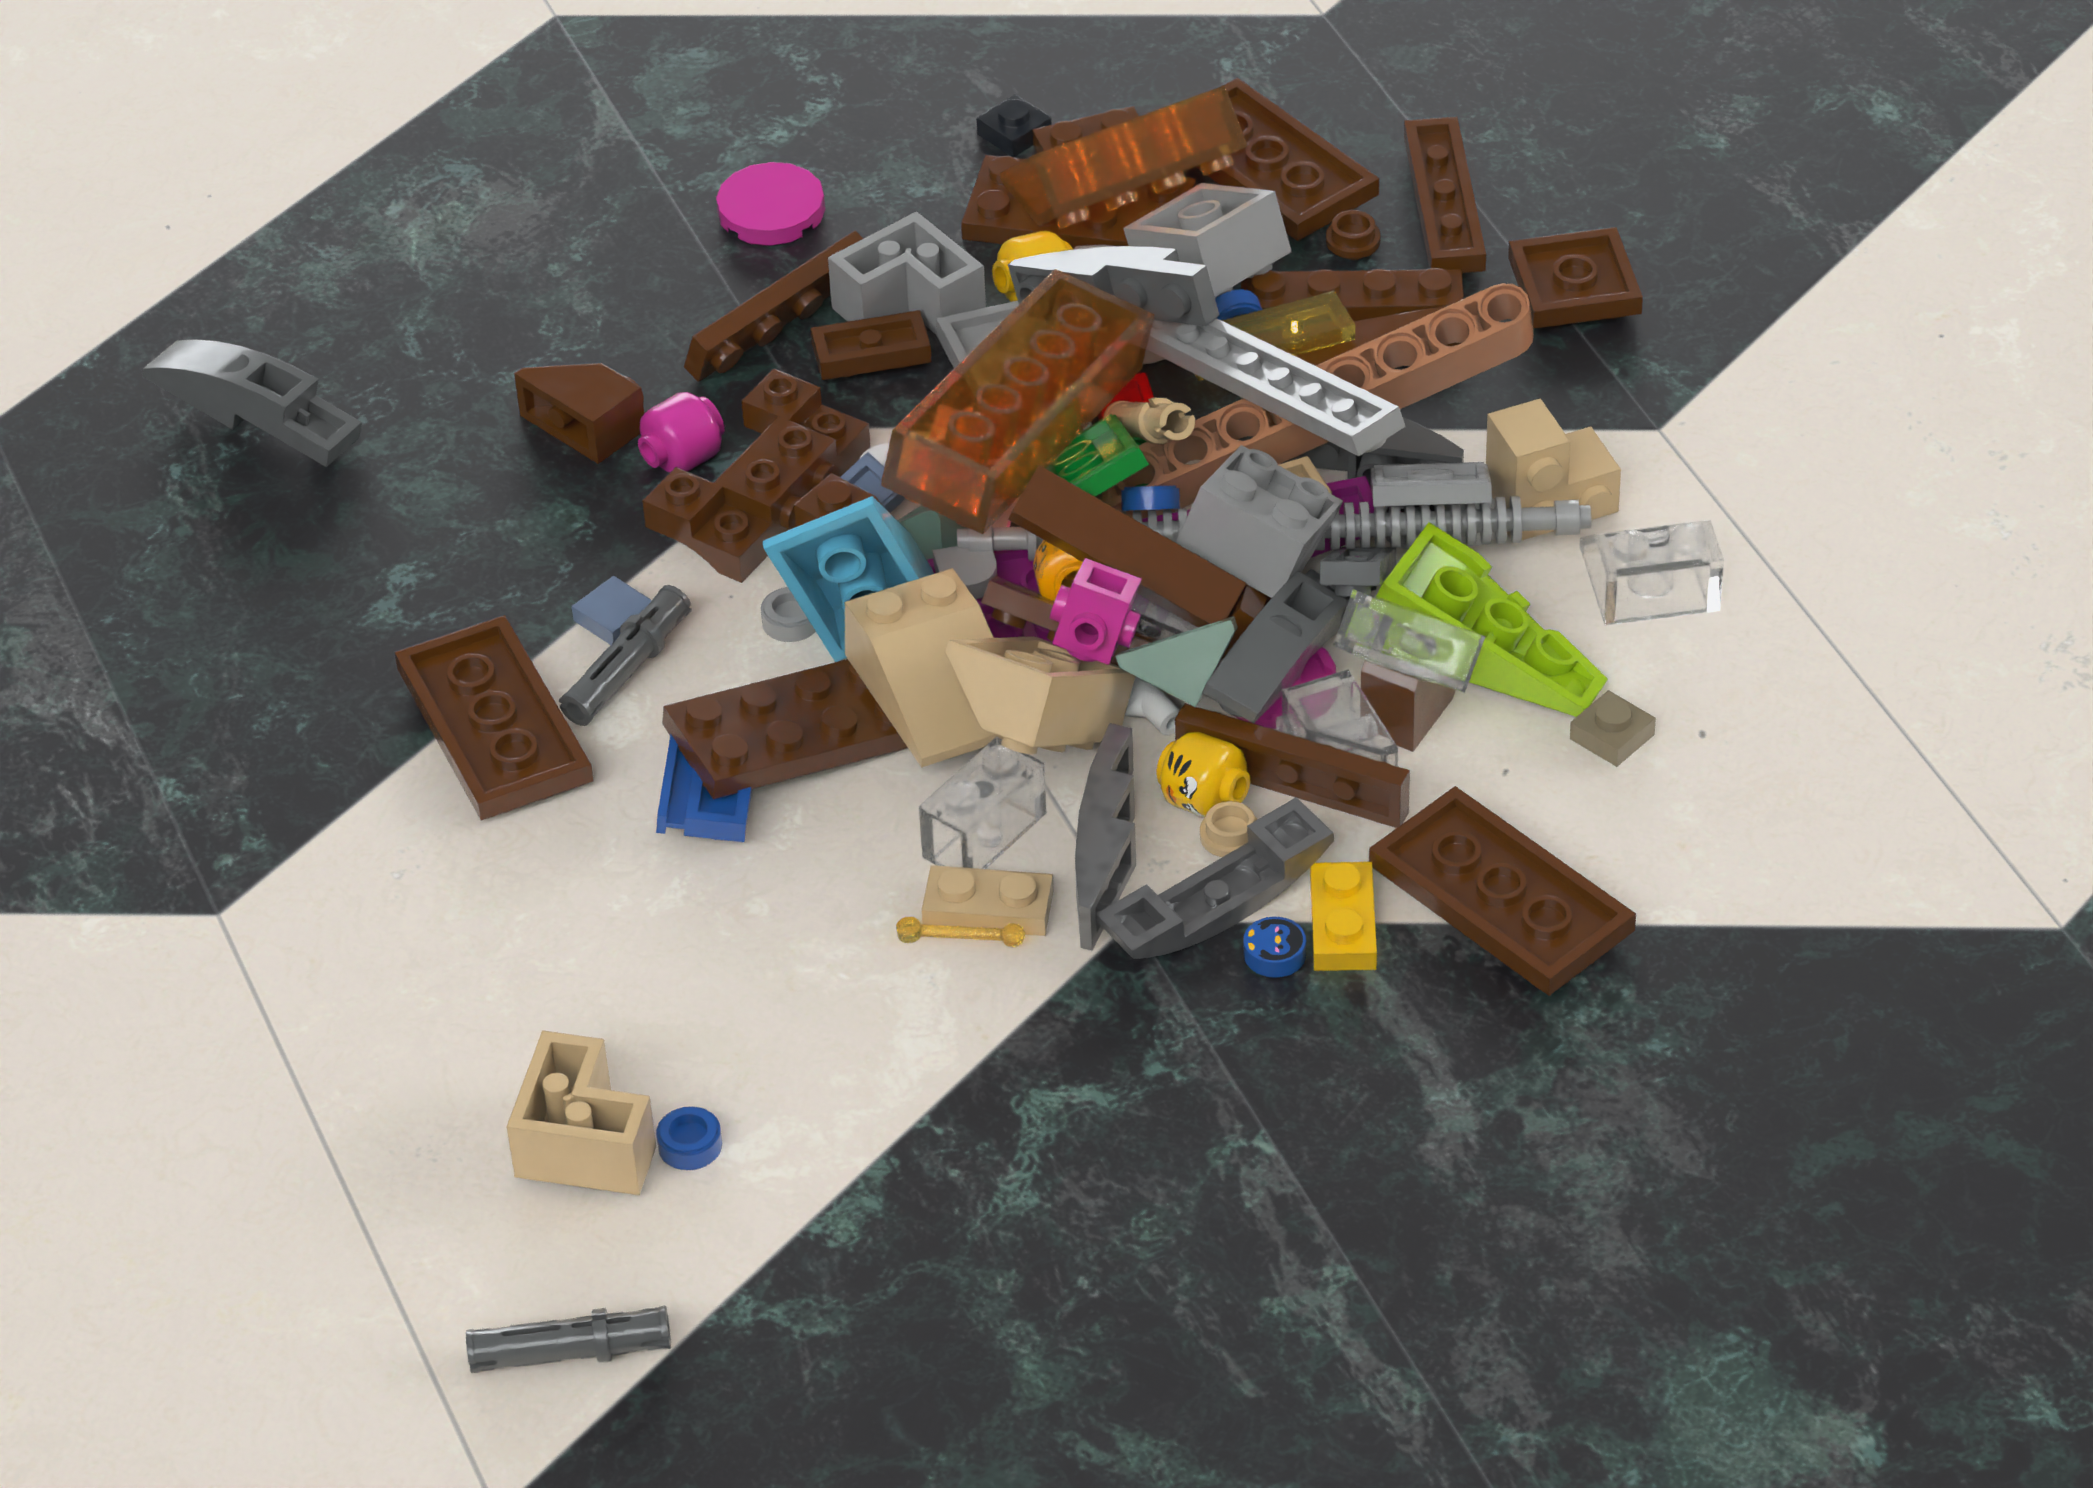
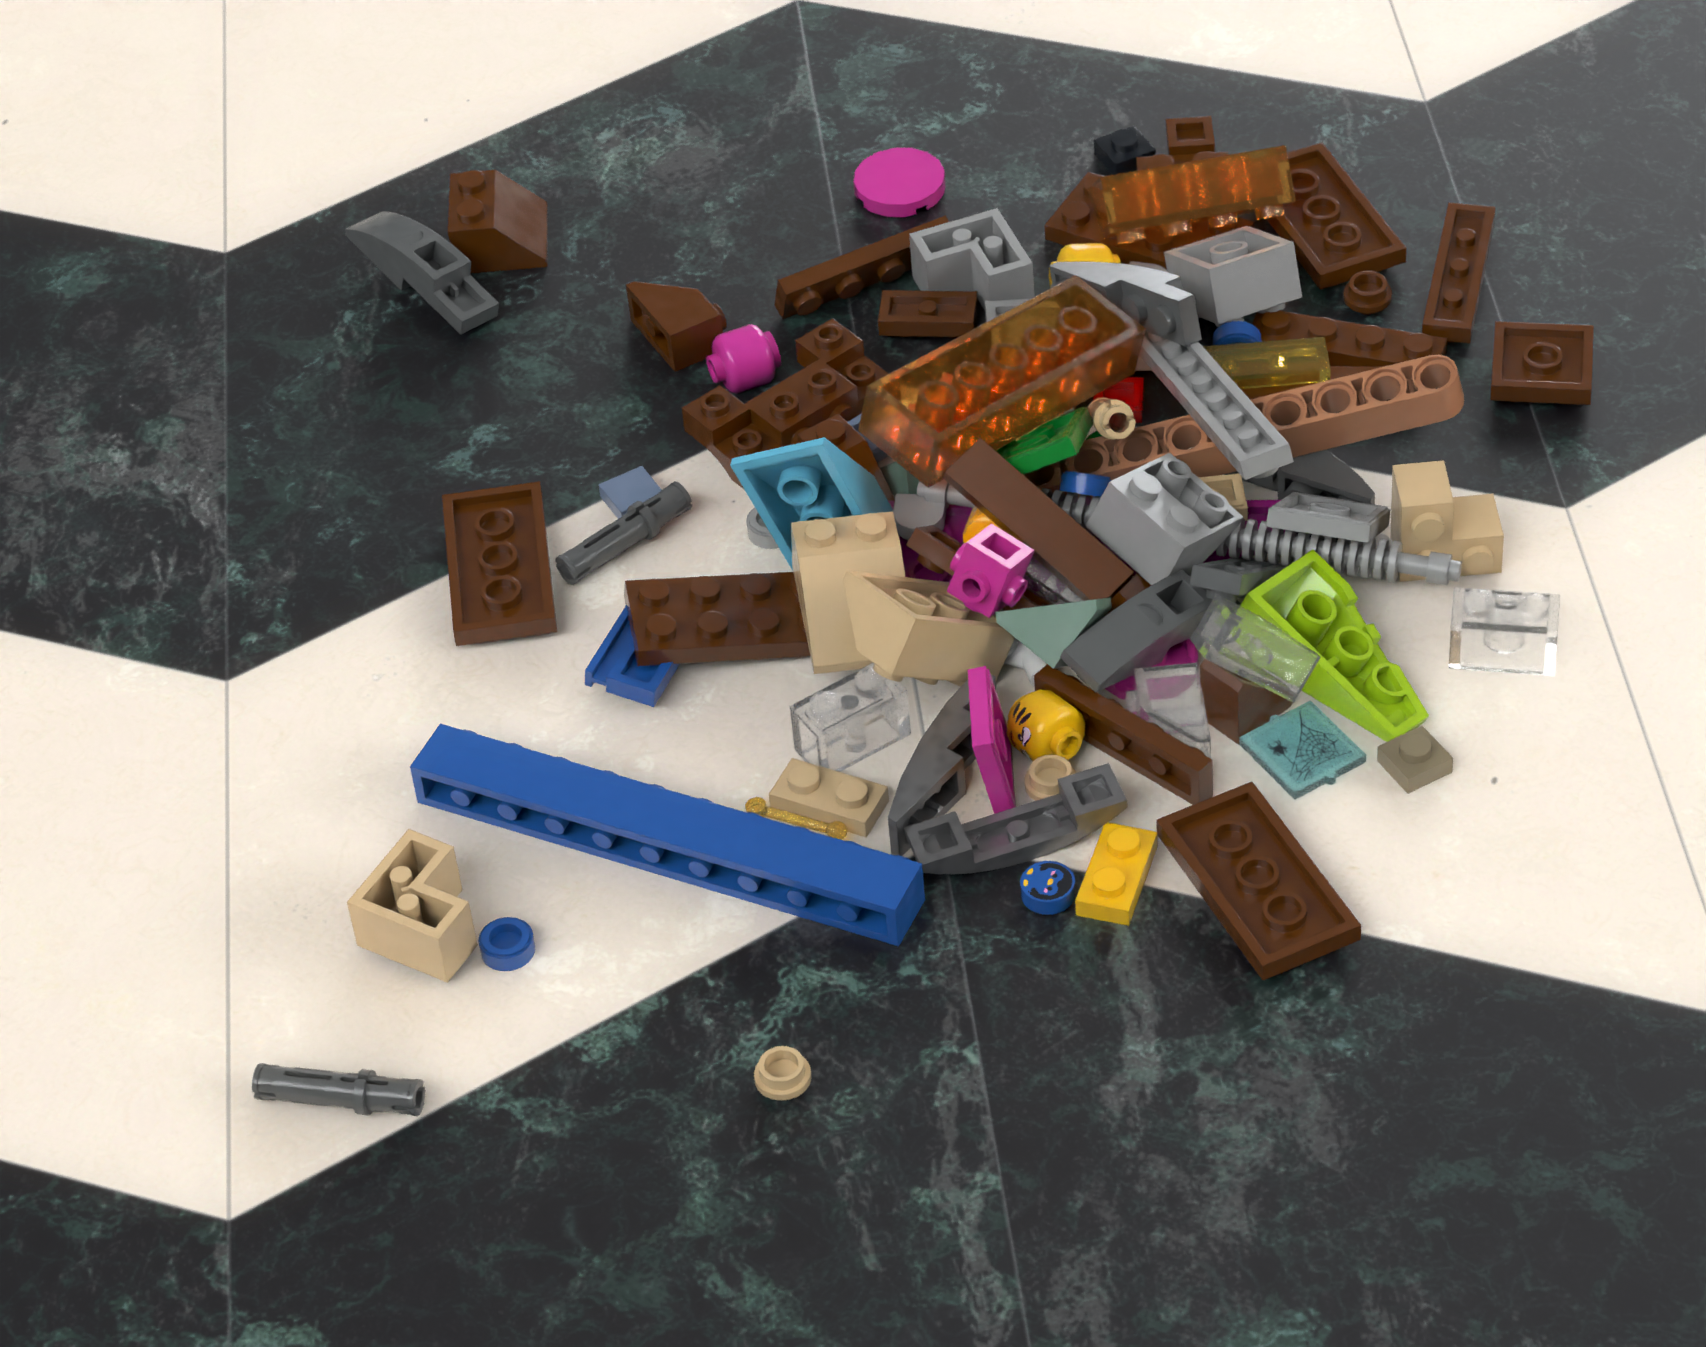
camera: 20 degrees right, 0 degrees up
(317, 328) = (497, 222): none -> reddish brown slope
(824, 976) = (670, 834): none -> blue brick
(1069, 1209) = (782, 1073): none -> tan plate
(1083, 95) = (1189, 135): none -> reddish brown plate
(1159, 798) = (990, 740): none -> dark pink tile
(1486, 742) = (1302, 750): none -> clear light blue piece

